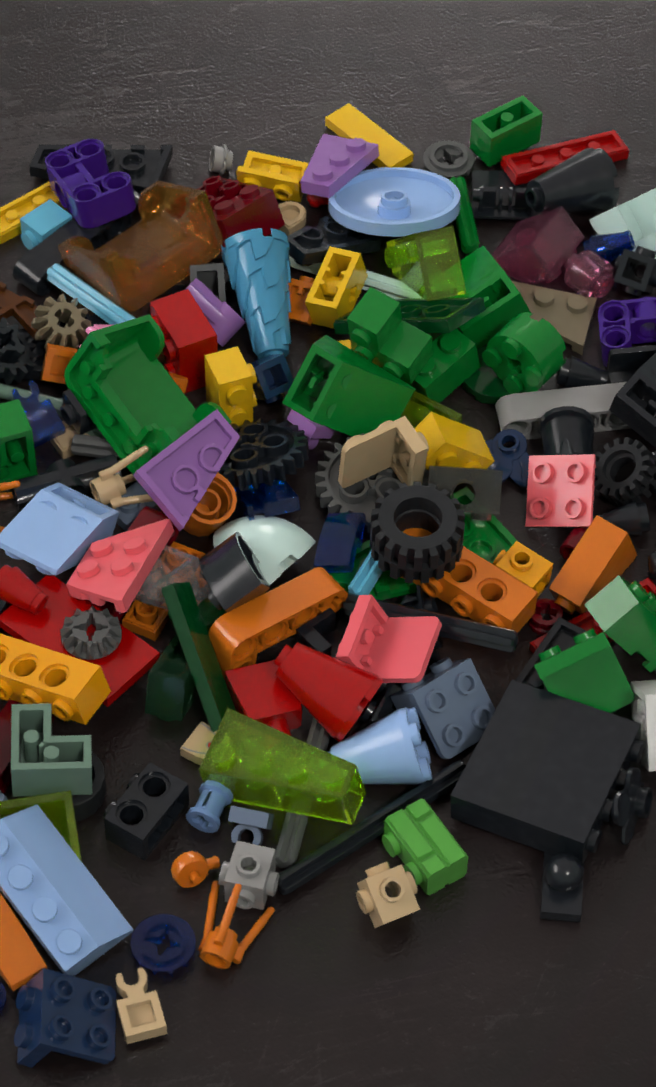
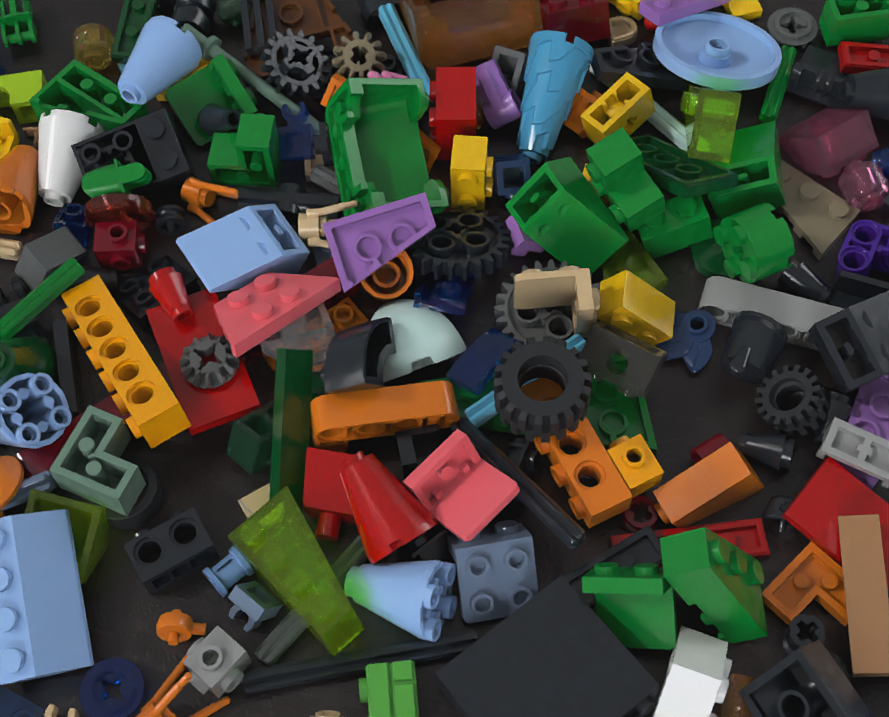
camera: 30 degrees right, 10 degrees up
(560, 490) = (718, 395): coral hinge -> none

